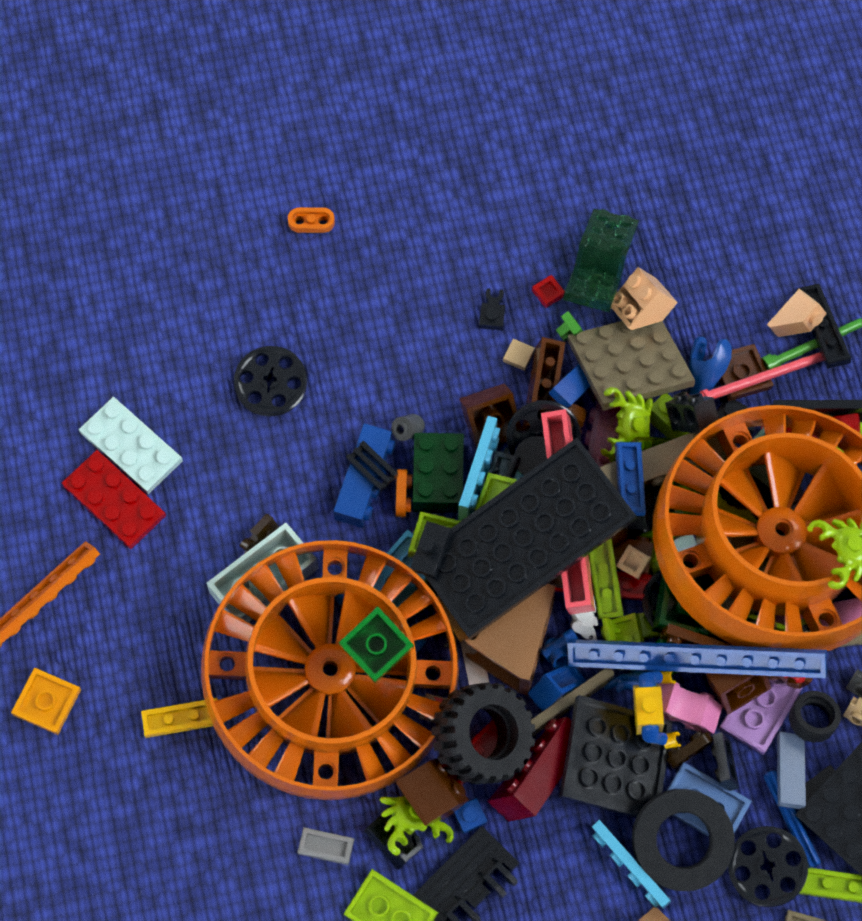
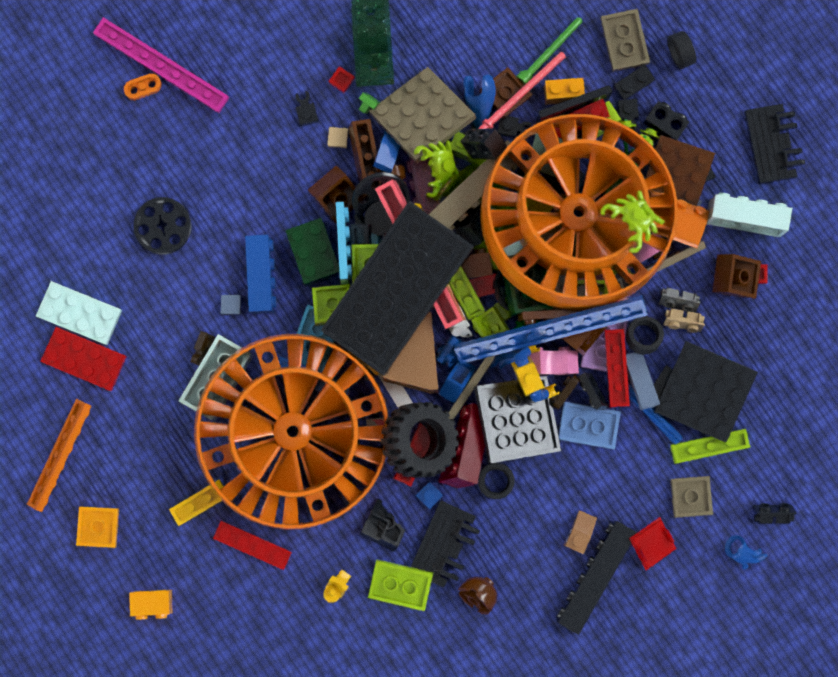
camera: 20 degrees left, 15 degrees up
(71, 817) = (150, 603): none -> light orange brick
(225, 795) = (252, 545): none -> red plate
(310, 881) = (336, 587): none -> yellow hips
(314, 499) = (230, 304): none -> sand blue tile
(326, 846) = (337, 554): light grey tile -> none
(343, 205) = (161, 65): none -> dark pink plate
(376, 644) = (322, 412): green brick -> none
(381, 462) = (249, 261): black tile -> none
(403, 503) = (291, 269): orange plate -> none
(406, 426) = (278, 225): dark grey brick -> none
(407, 820) = (389, 511): lime animal -> none
(431, 549) = (332, 320): black tile -> none
(432, 792) = (398, 493): reddish brown slope -> none
(573, 812) = (510, 480): none -> black tyre
(630, 475) = (456, 211): blue tile -> none
(633, 562) = (479, 271): tan tile -> none
(637, 874) = (559, 493): medium azure plate -> none
(642, 300) = (414, 64): light nougat slope -> none
(720, 846) = (602, 478): black tyre -> none
(765, 743) = (616, 368): none -> red plate
(780, 871) = (649, 445): black wedge -> none
(797, 316) = (532, 34): light nougat slope -> none
(813, 388) = (562, 90): none -> light orange brick
(827, 332) = (553, 34): black tile -> none

